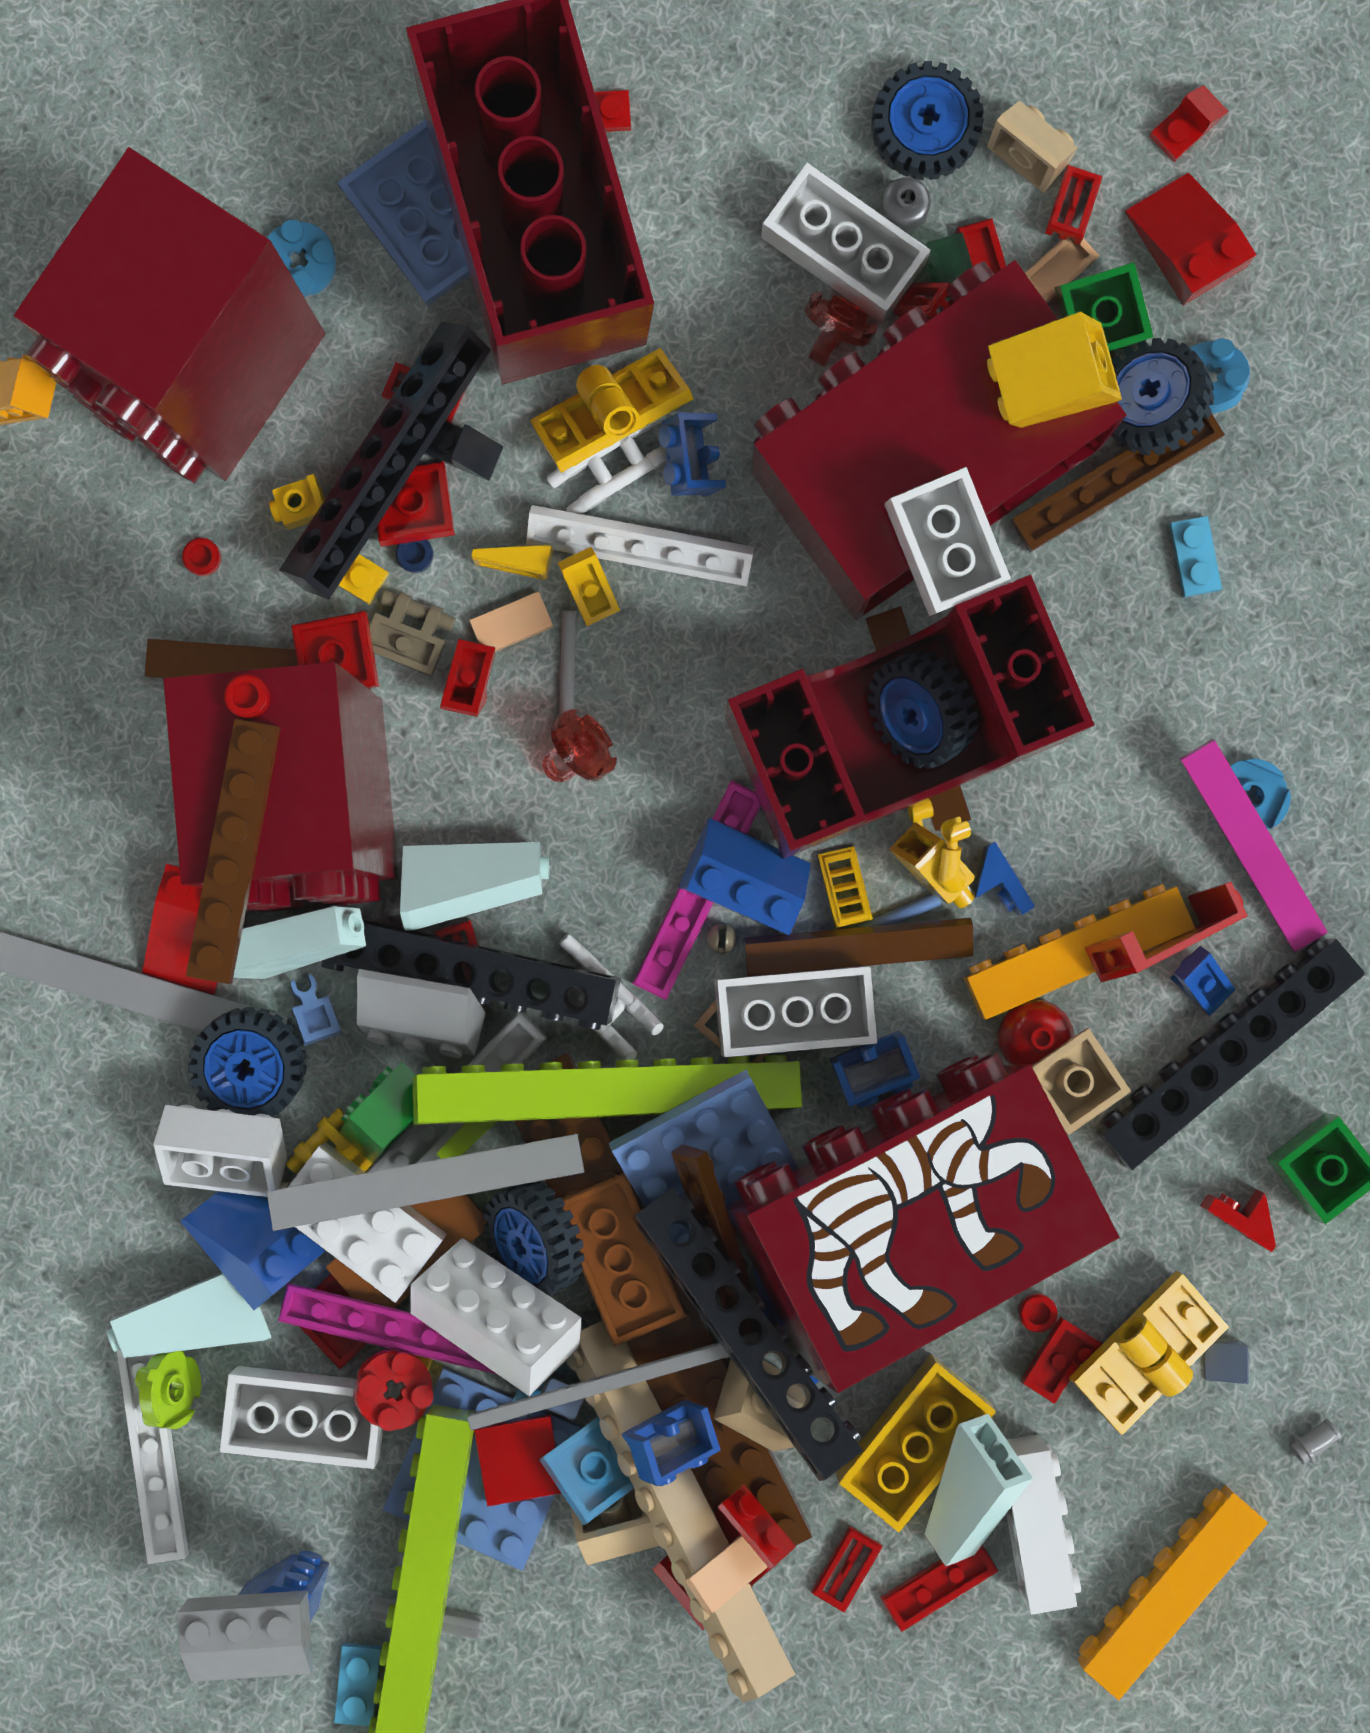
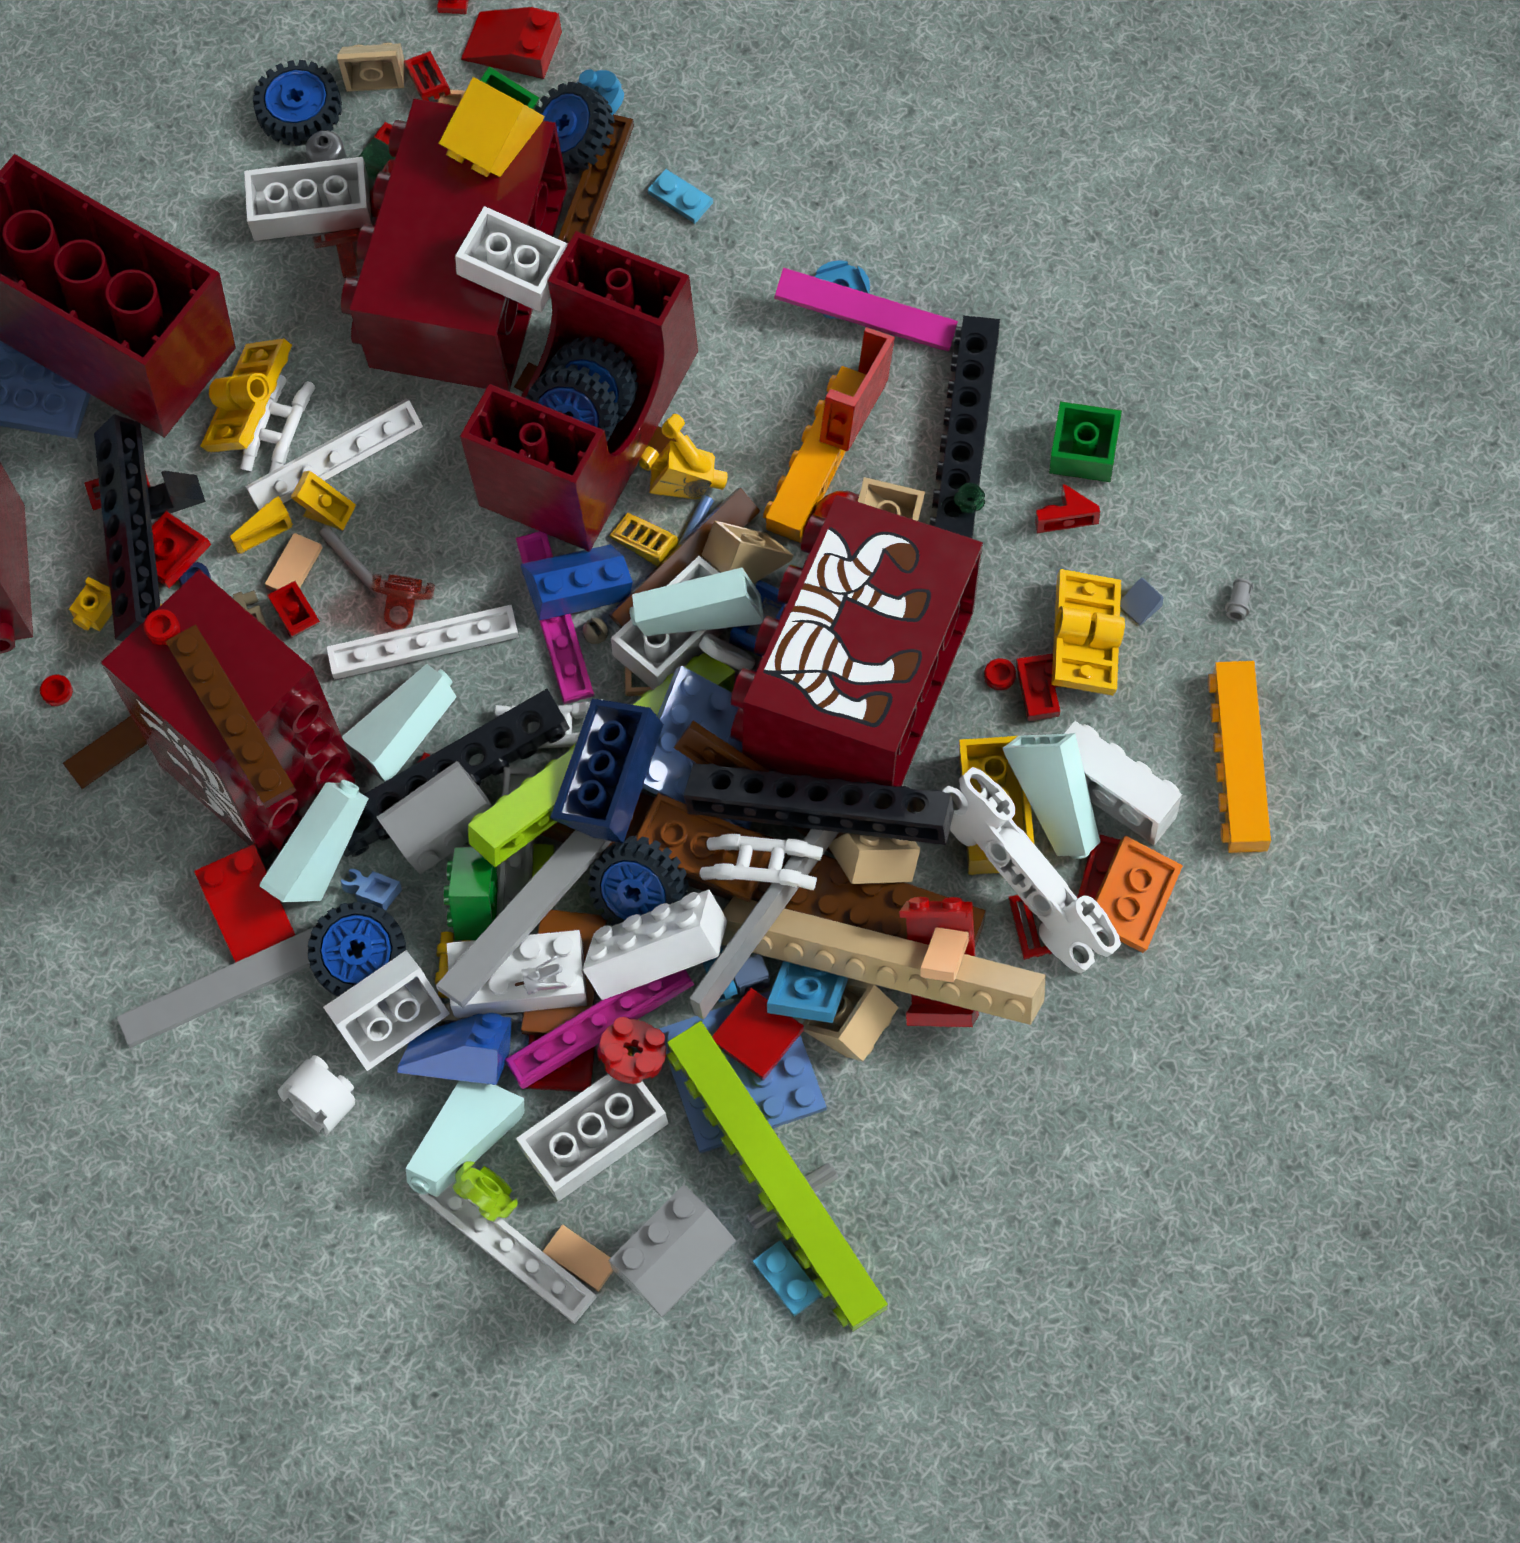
camera: 40 degrees left, 20 degrees down
(101, 1171) = (318, 1095): none -> white brick
(204, 1508) = (579, 1258): none -> light nougat tile
(357, 1263) = (533, 976): none -> flat silver piece
(559, 810) = (422, 642): none -> white plate
(588, 1127) = (607, 769): none -> dark blue slope
(672, 1442) = (838, 913): blue window -> none
(673, 1341) = (774, 872): none -> white piece
(687, 455) = (319, 385): blue window -> none
(812, 1079) = (726, 652): none -> white tile
(816, 1028) = (698, 604): none -> light aqua slope
(870, 1600) = (1065, 919): none -> white piece
(879, 721) = (577, 396): none -> black wheel
(916, 996) = (738, 547): none -> tan slope
(957, 1630) = (1137, 891): none -> orange plate
(996, 871) = (731, 450): blue slope -> none
(1173, 1142) = (970, 490): none -> clear green plate
(1203, 980) = (909, 405): blue slope -> none

